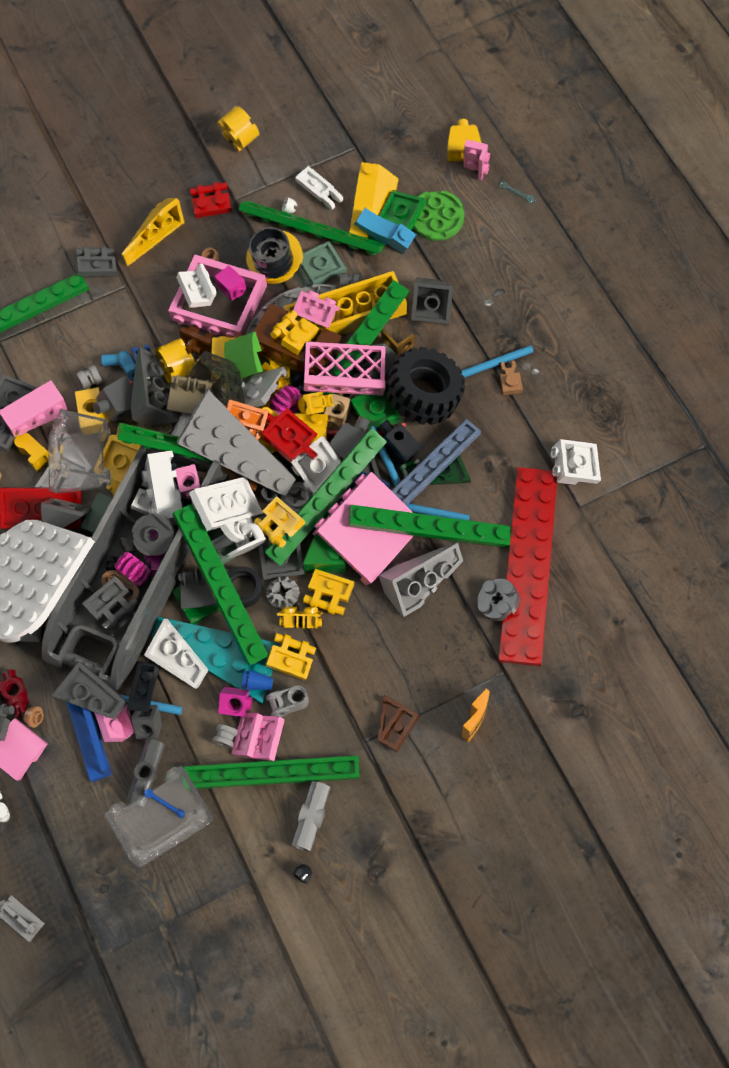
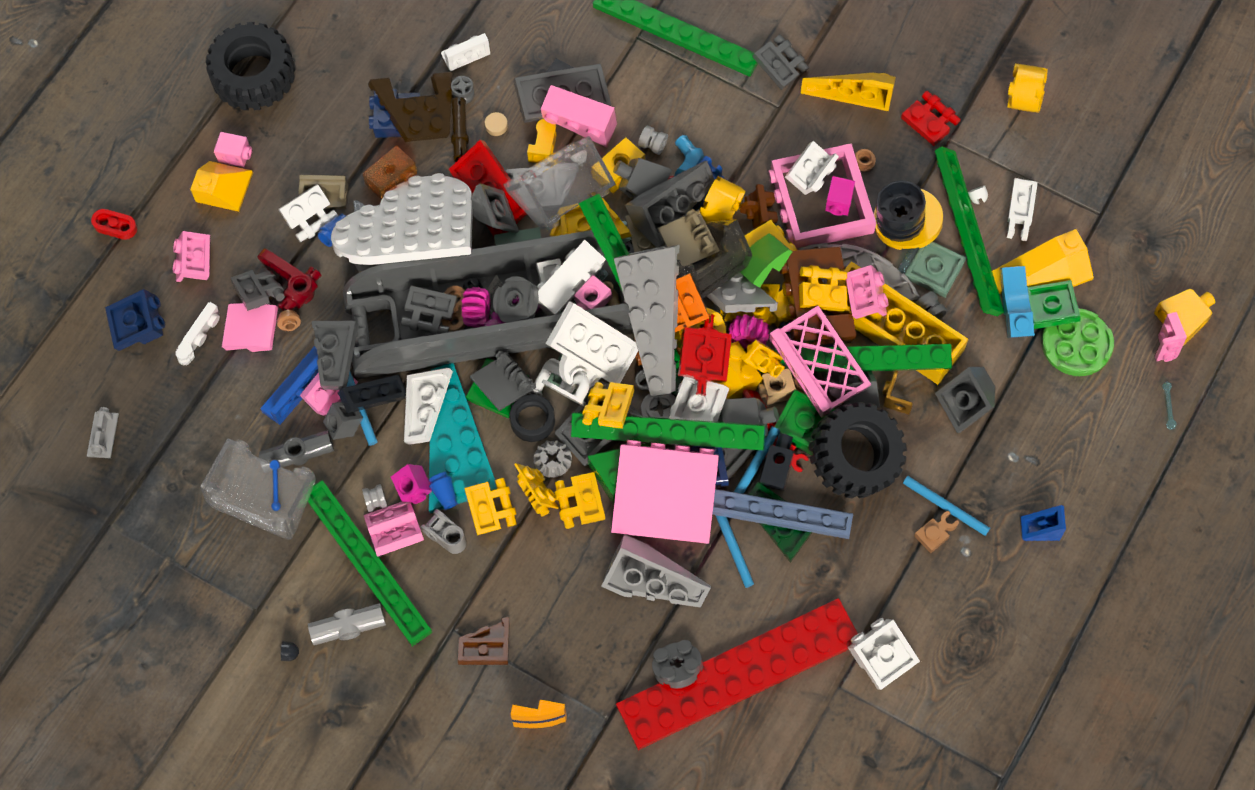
camera: 55 degrees right, 0 degrees up
(220, 585) = (508, 394): green plate -> none
(429, 526) = (706, 550): green plate -> none
(552, 310) = (1044, 525): none -> blue slope

